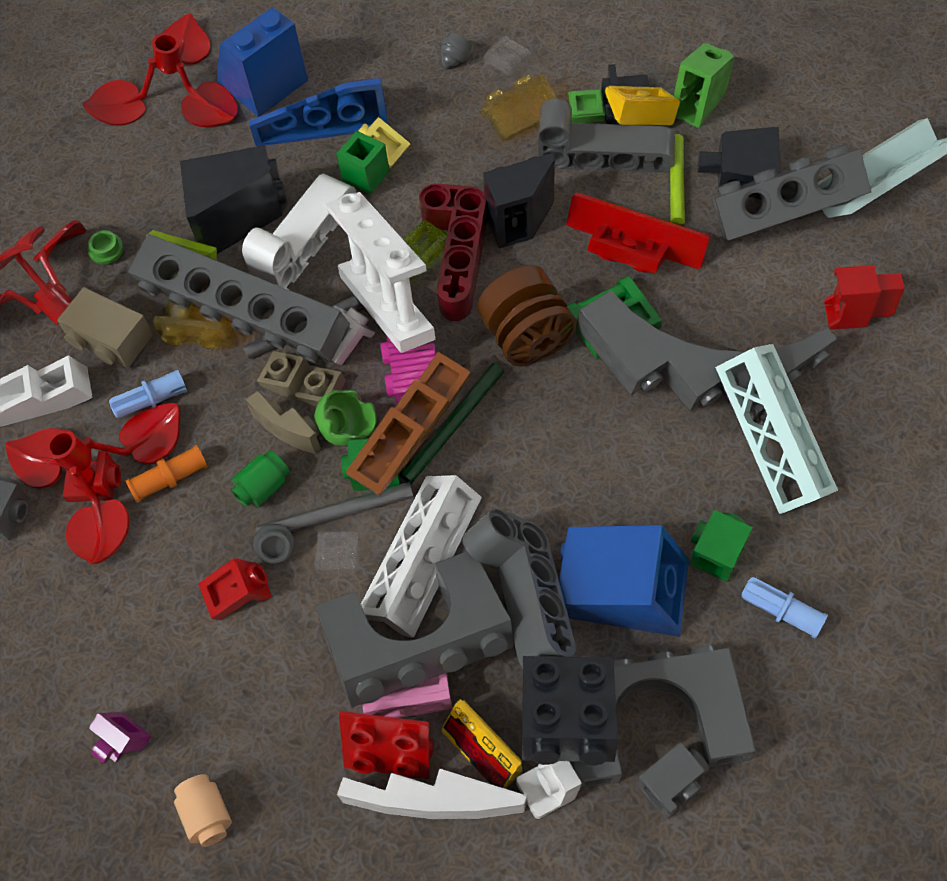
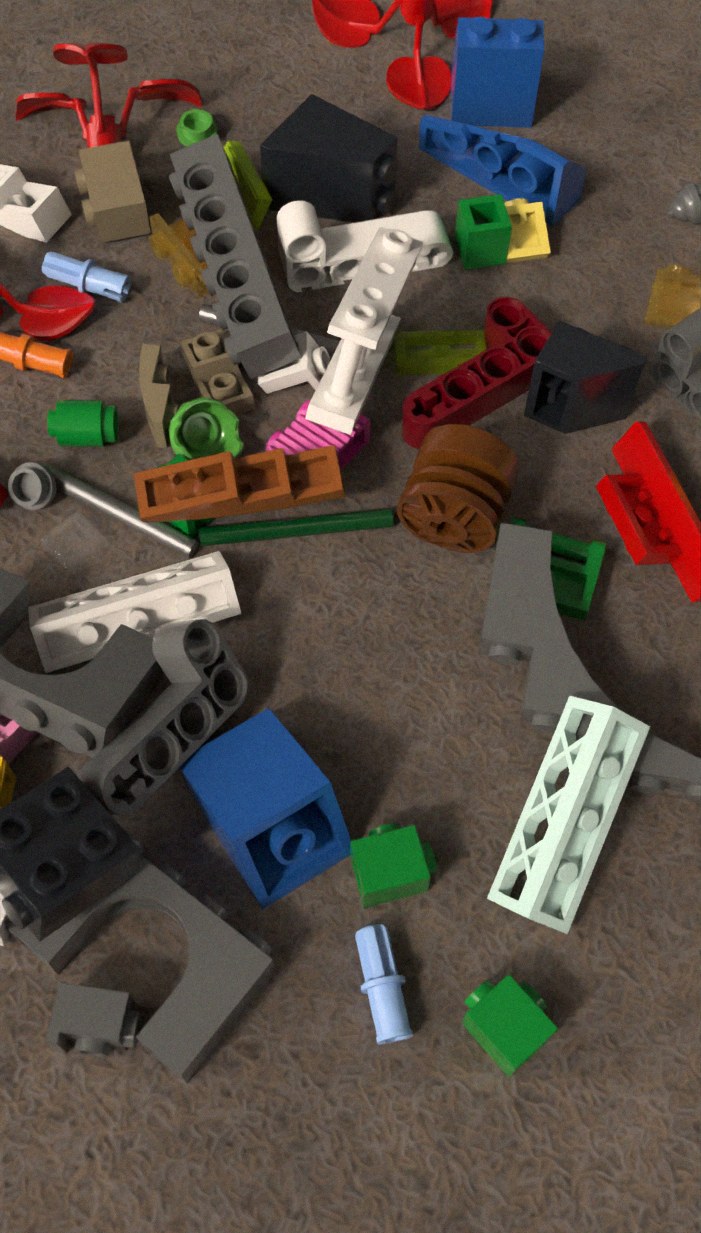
camera: 40 degrees right, 0 degrees up
(864, 560) = (508, 1022): none -> green brick

